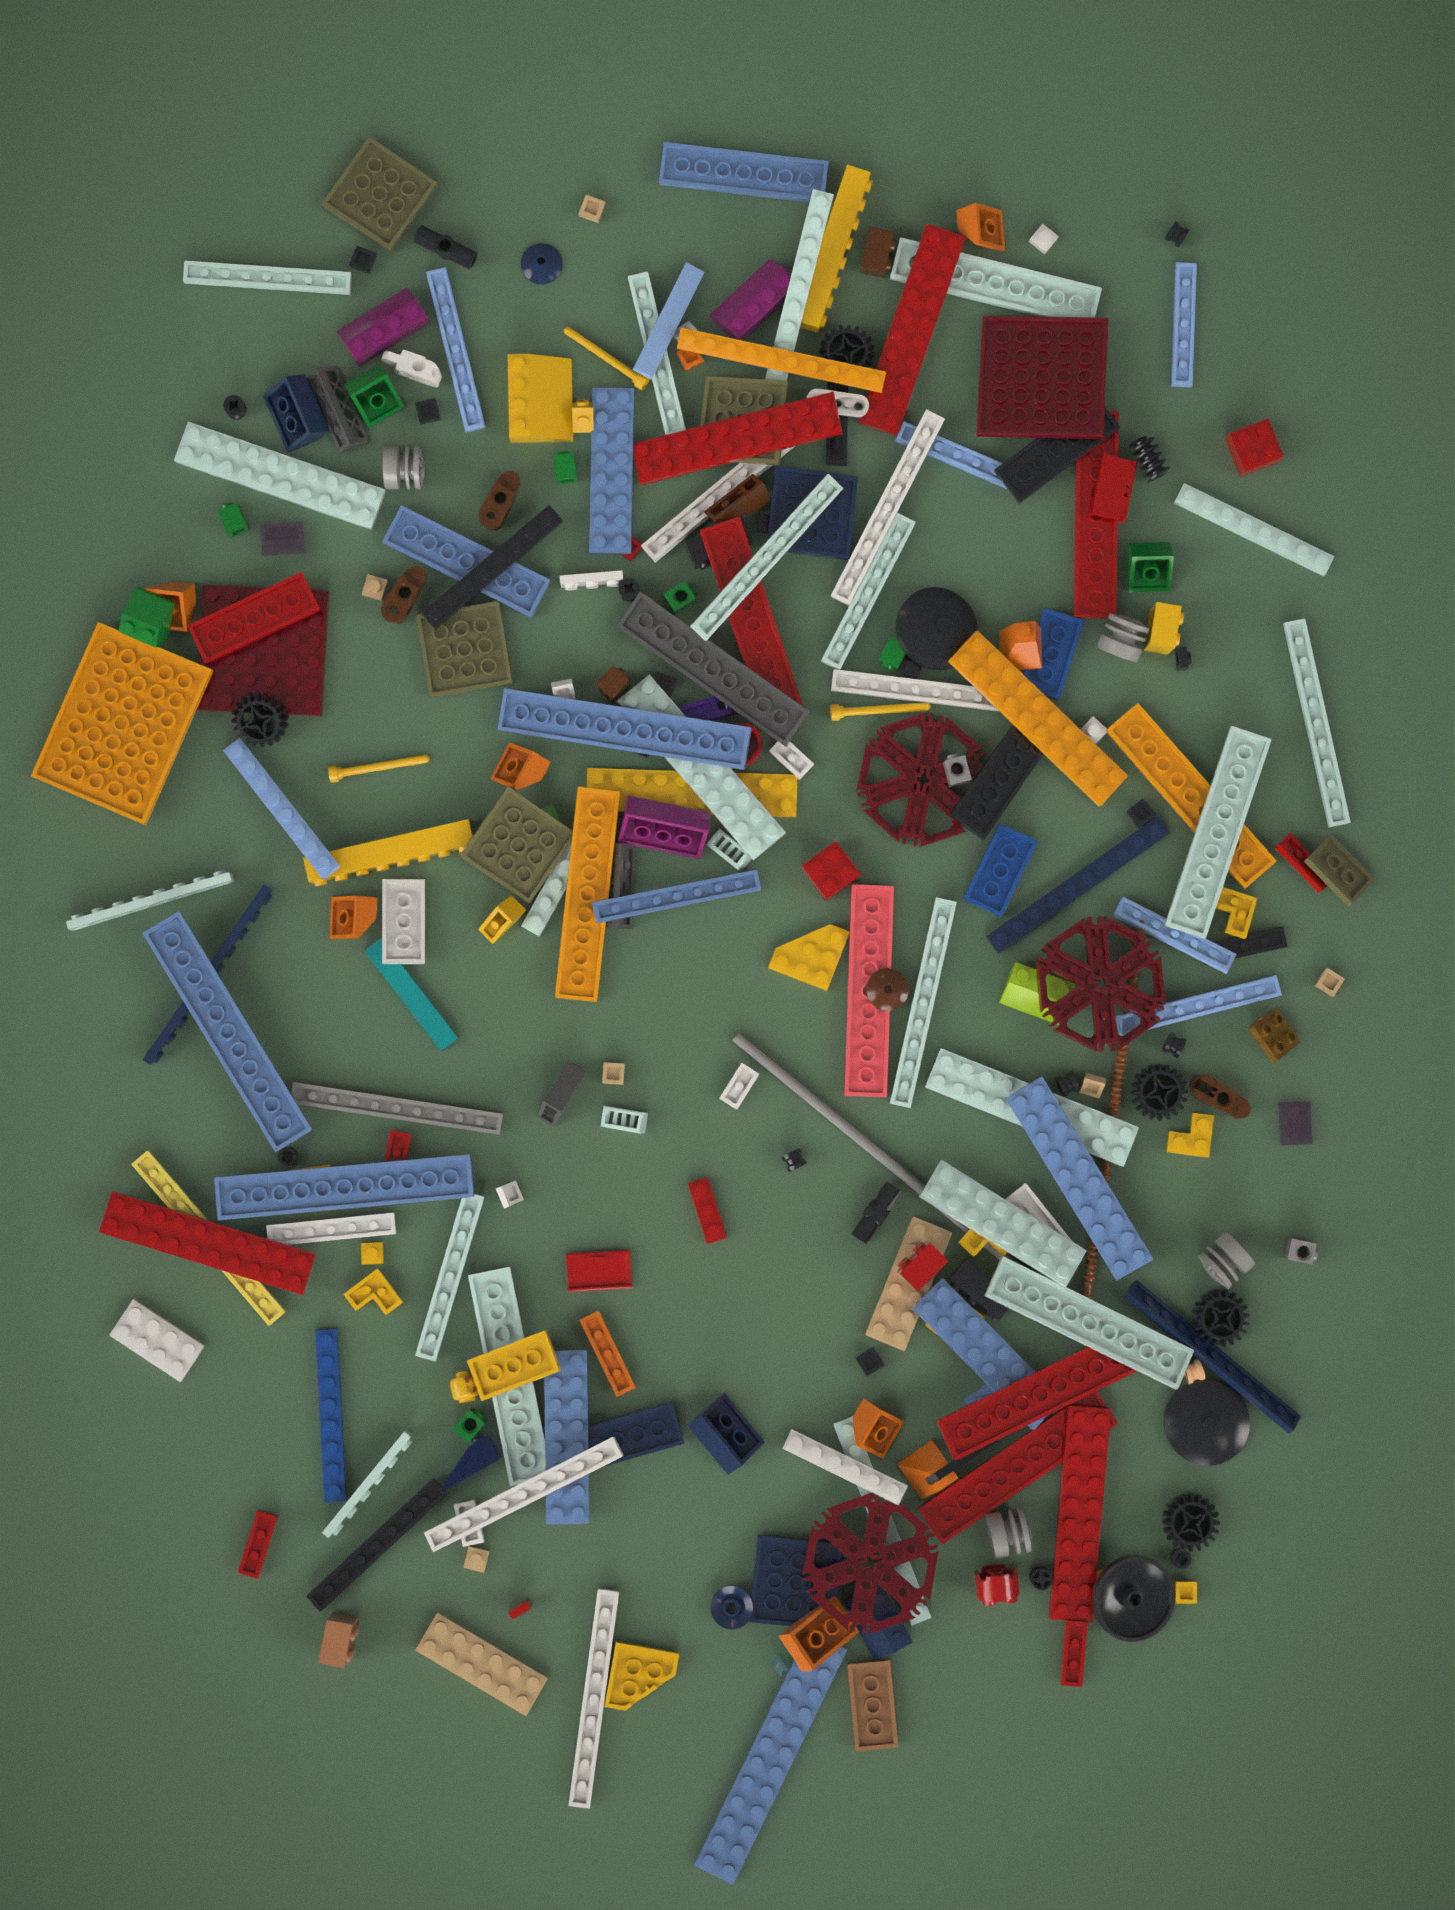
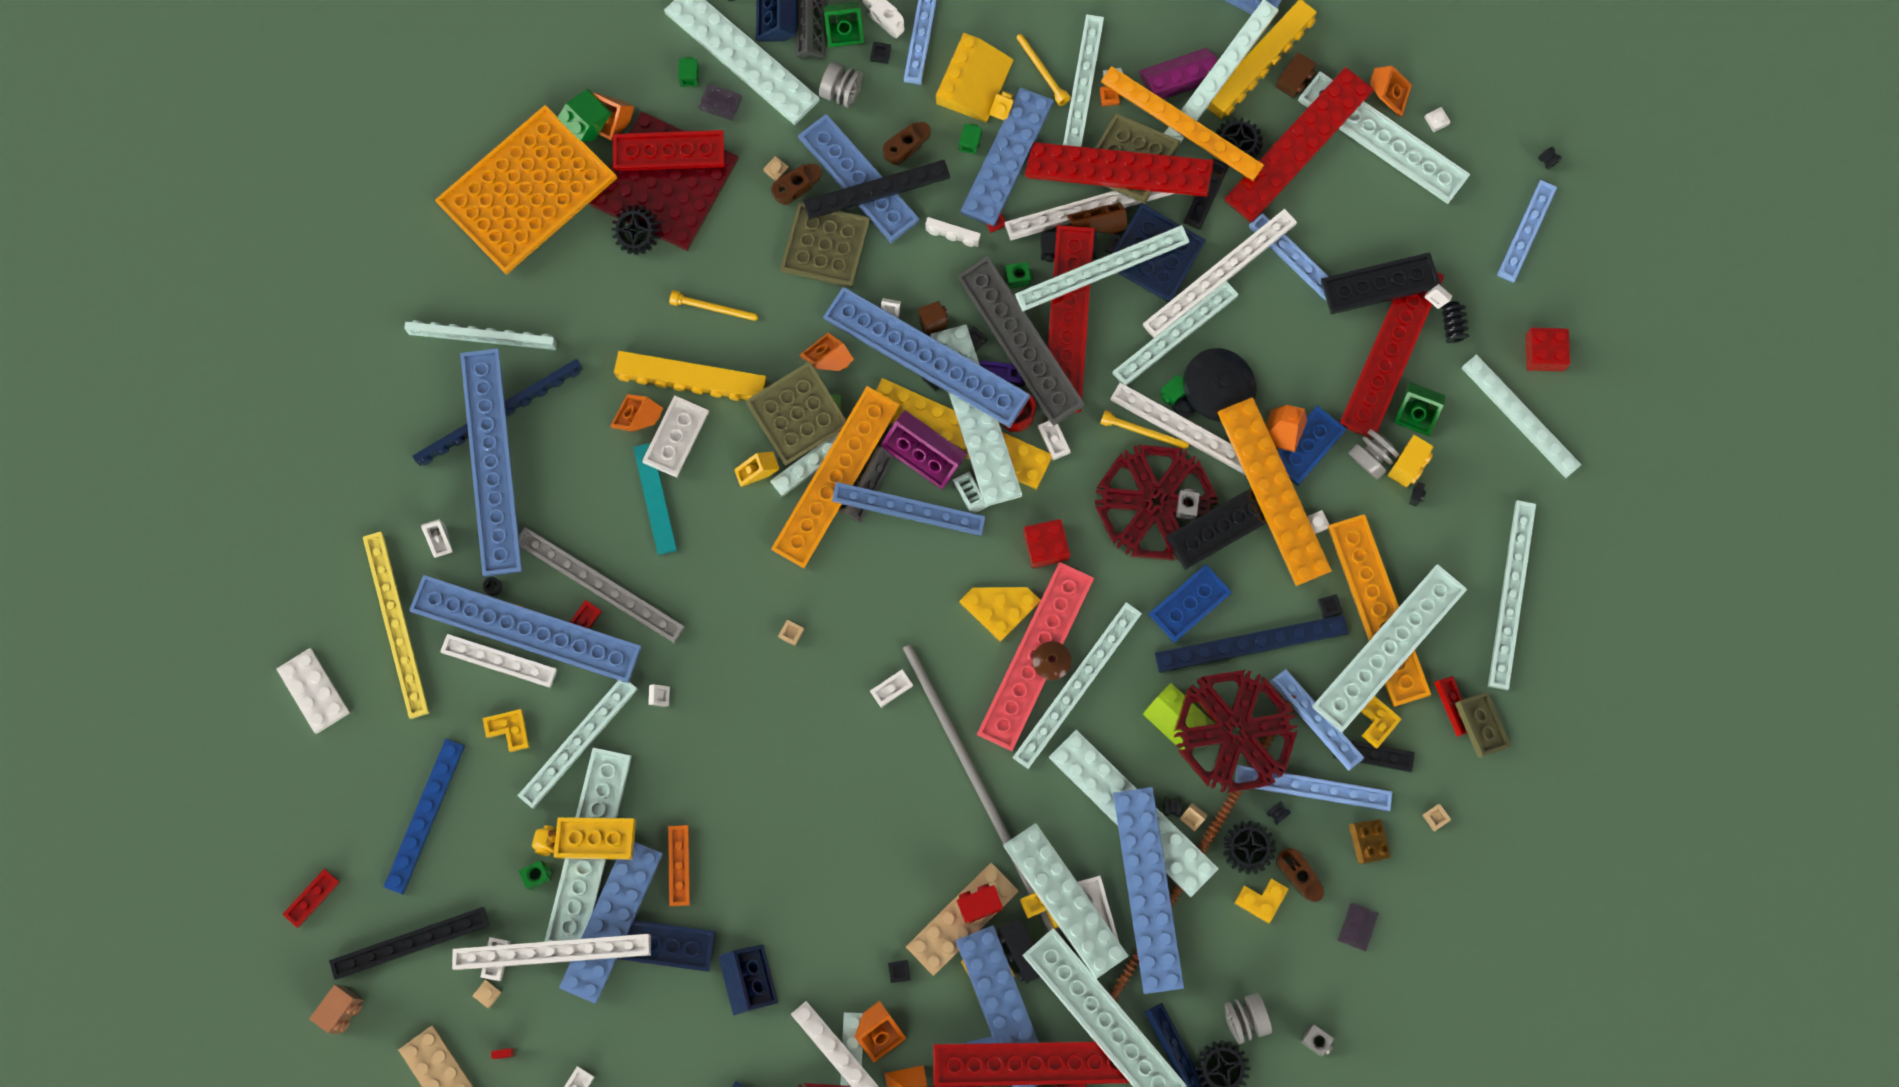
camera: 30 degrees right, 10 degrees down
(207, 1243) = (393, 627): red plate -> none
(209, 1132) = (437, 537): none -> white slope
(281, 809) = (620, 307): light blue plate -> none
(372, 1253) = (523, 695): yellow plate -> none
(375, 1477) = (419, 892): light aqua plate -> none
(477, 1456) = (524, 906): clear blue slope -> none
(561, 1093) = (739, 630): dark grey slope -> none
(598, 1272) = (697, 791): red door -> none
(631, 592) = (976, 255): black wheel -> none
(642, 1120) = (792, 683): light aqua slope -> none
(668, 320) = (1103, 60): light blue tile -> none
(707, 1210) = (818, 781): red plate -> none
(793, 1160) = (910, 769): black wheel -> none
(847, 402) = (1222, 179): white plate -> none
(876, 1212) = (960, 845): black piece -> none
(1042, 377) = (1391, 222): dark red plate -> none
(1110, 495) = (1411, 336): red door -> none
(1122, 439) = (1438, 296): none -> white plate

